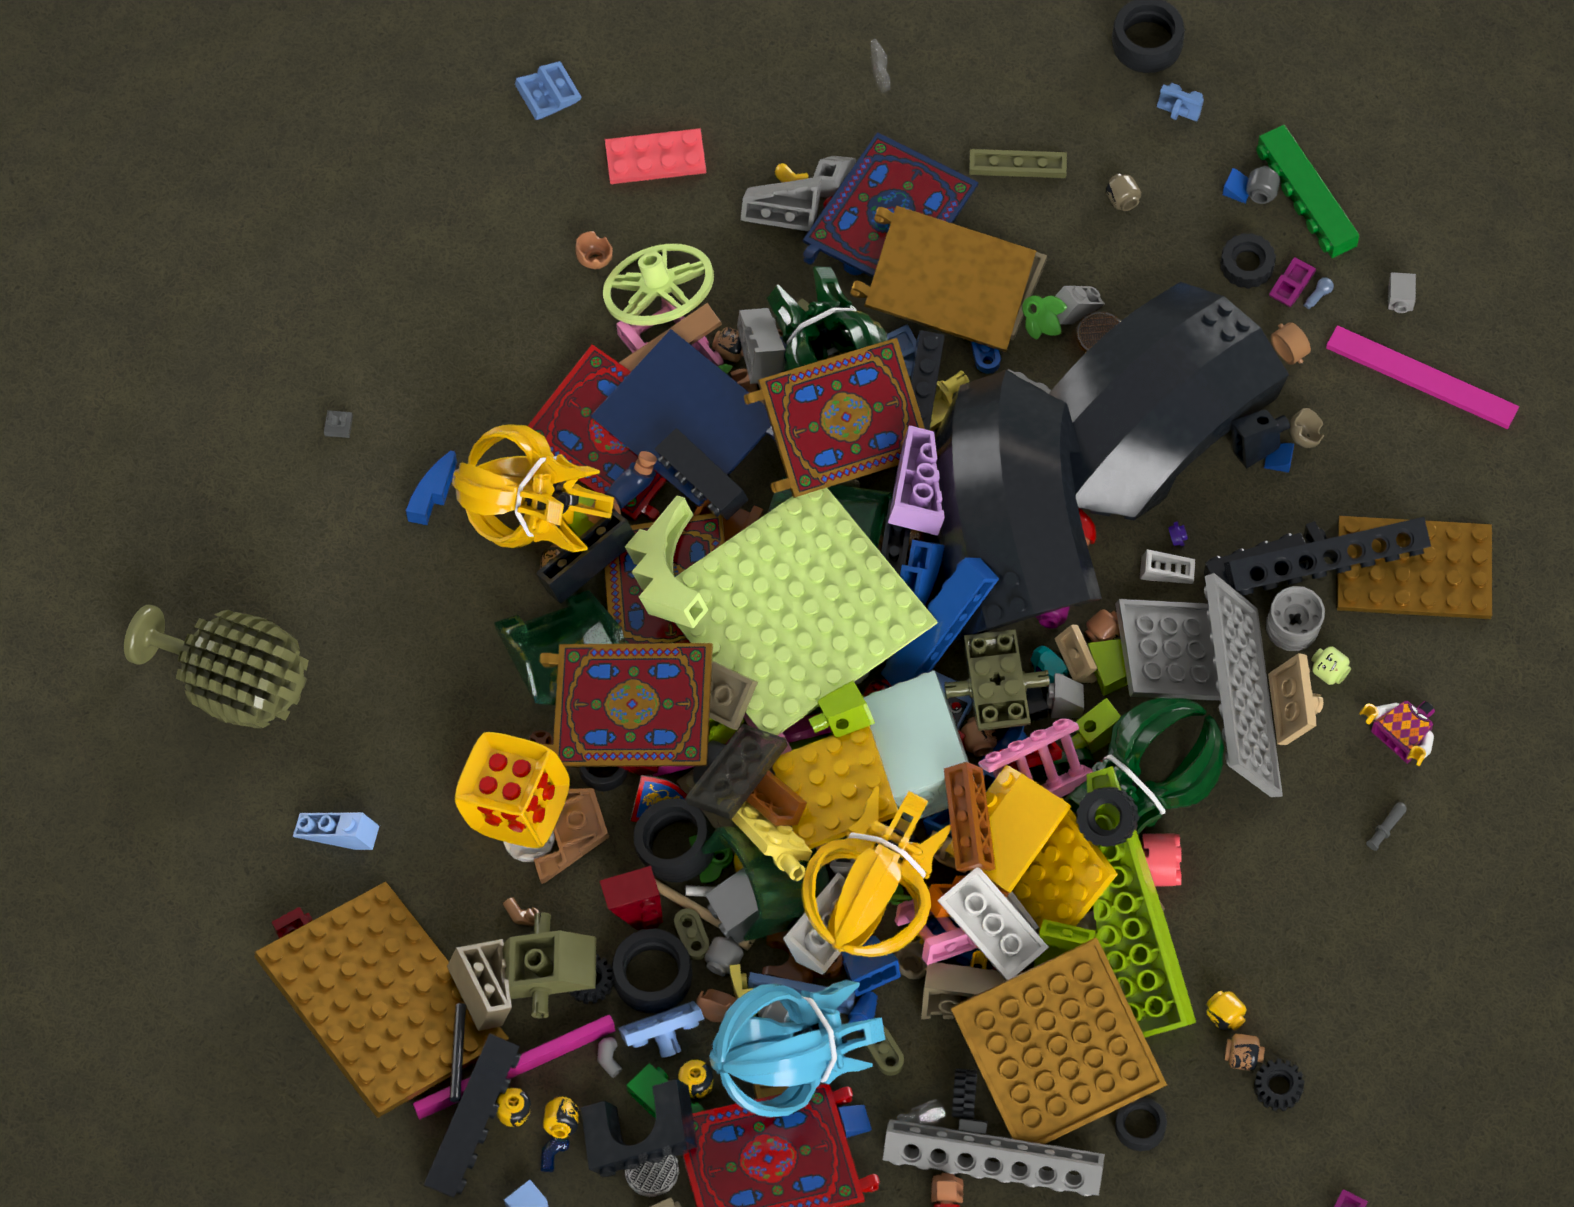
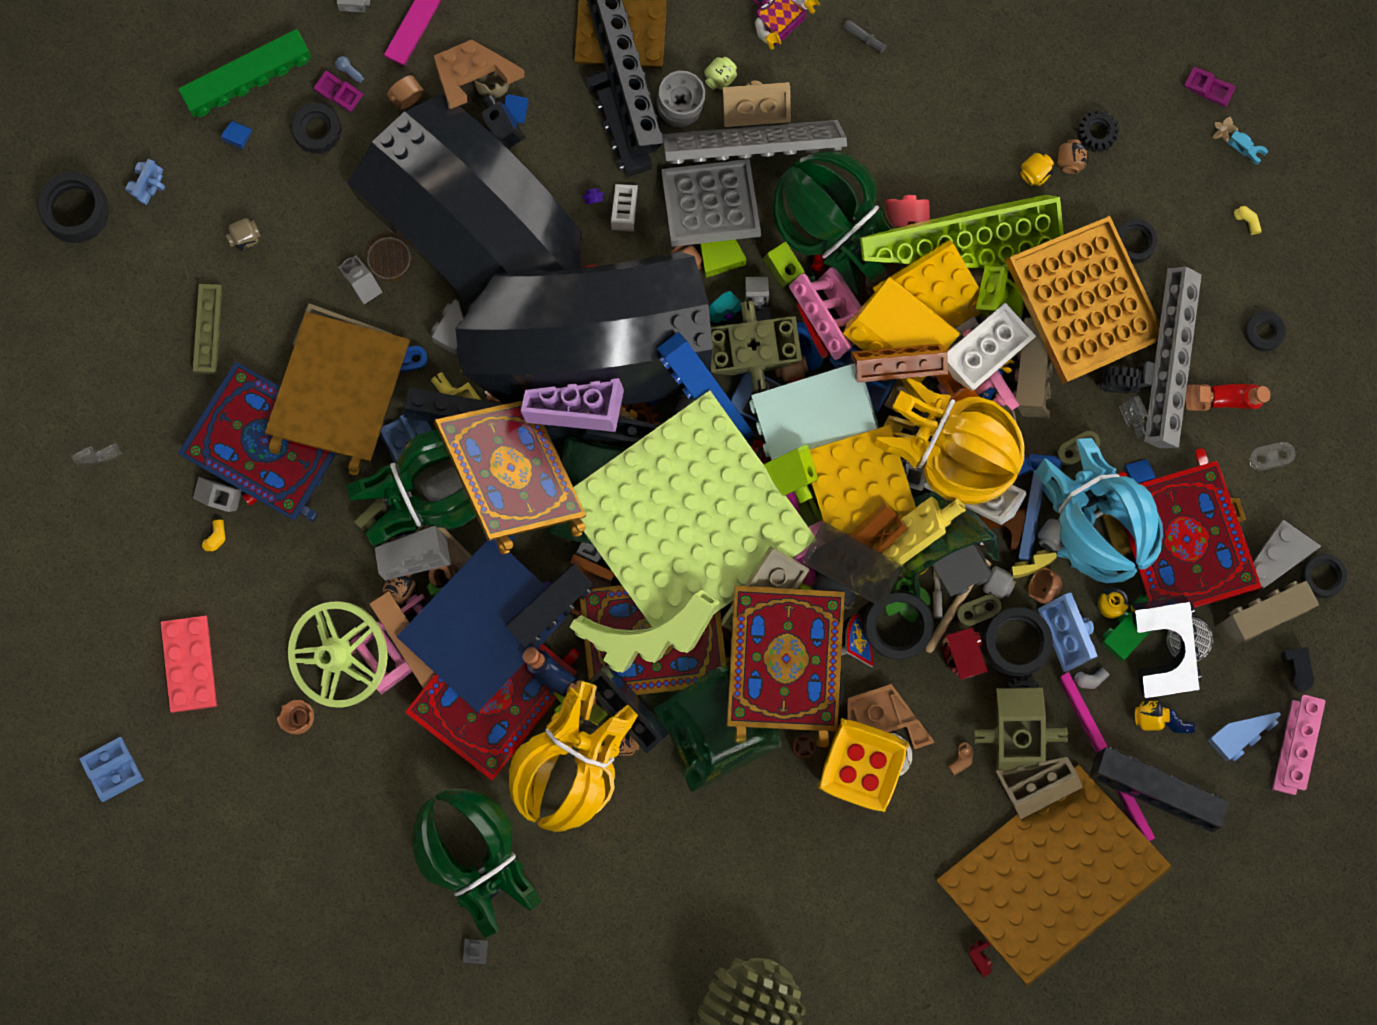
camera: 95 degrees left, 15 degrees up
(338, 829) = (888, 927): light blue slope -> none
(432, 489) = (548, 858): blue slope -> none
(438, 398) = (469, 884): none -> dark green piece
(457, 1054) = (1105, 803): black bar -> none
(513, 1115) = (1148, 749): yellow head -> none
(783, 204) = (252, 540): light grey wedge -> none
(922, 568) = (652, 404): blue slope -> none
(1045, 317) = (376, 305): bright green plate -> none
(1076, 655) = (720, 280): tan panel -> none
(1126, 808) = (920, 244): black tyre -> none
(1263, 185) = (238, 111): dark grey head -> none
(1325, 398) = (468, 63): none -> medium nougat wing

